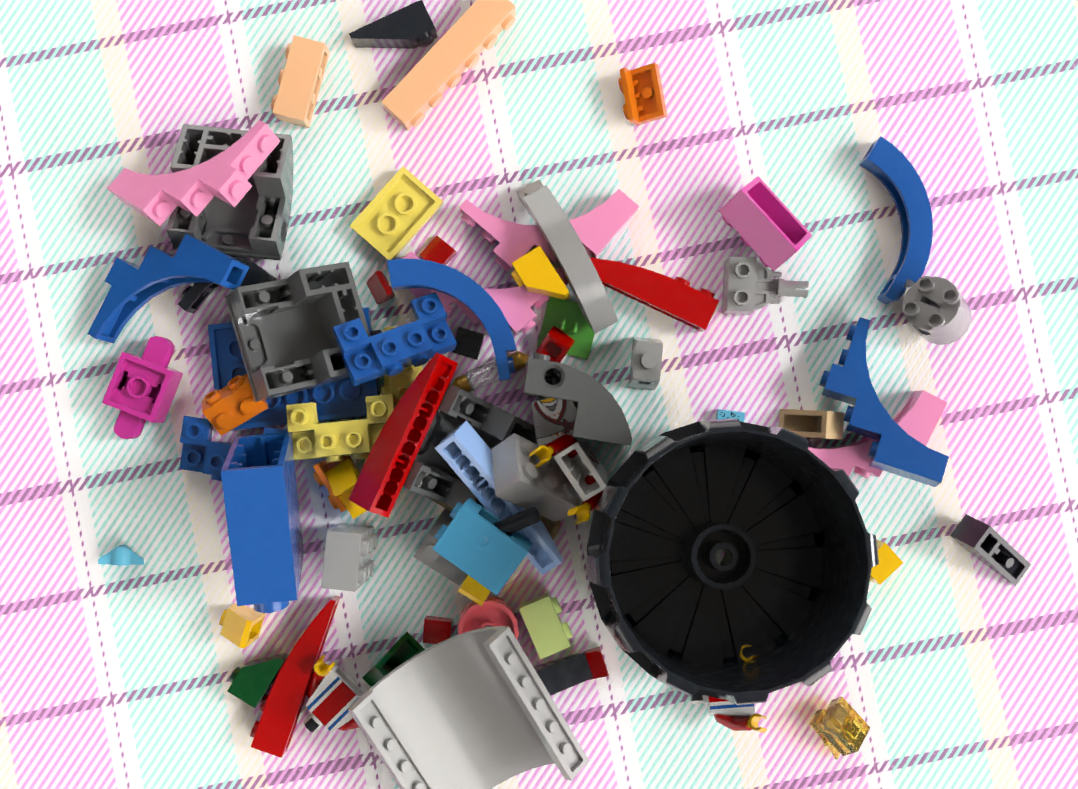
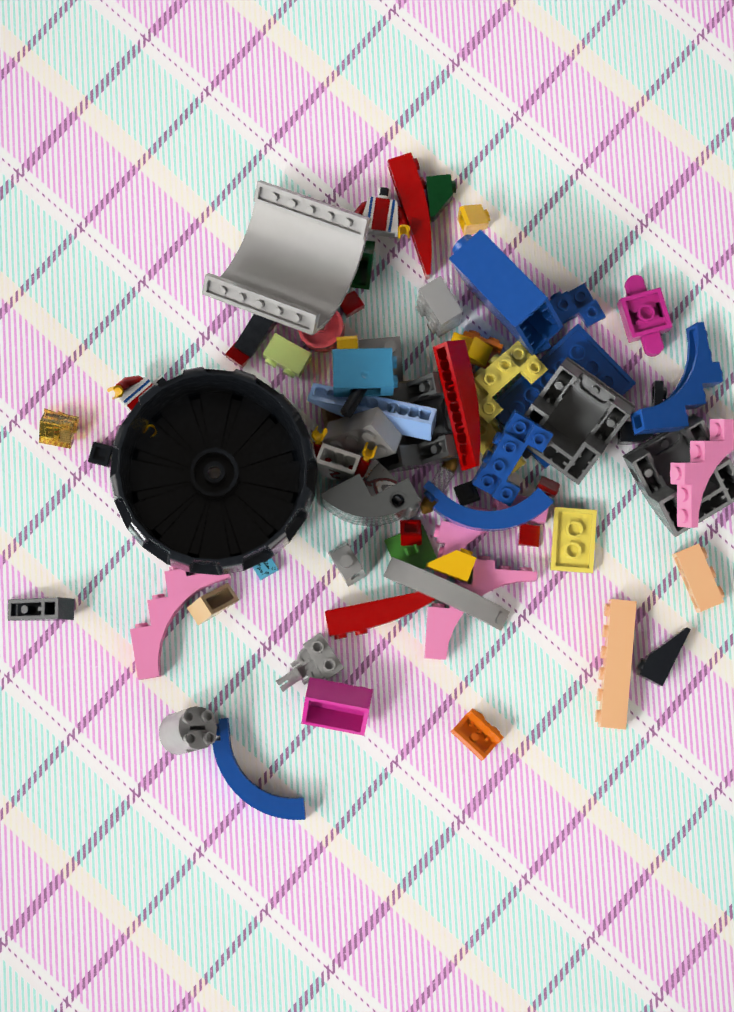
camera: 140 degrees right, 5 degrees down
(121, 556) = (578, 205): medium azure piece -> none
(231, 405) = (582, 345): orange bracket -> none
(887, 564) = (108, 547): yellow brick -> none
(894, 449) = (207, 645): blue arch -> none

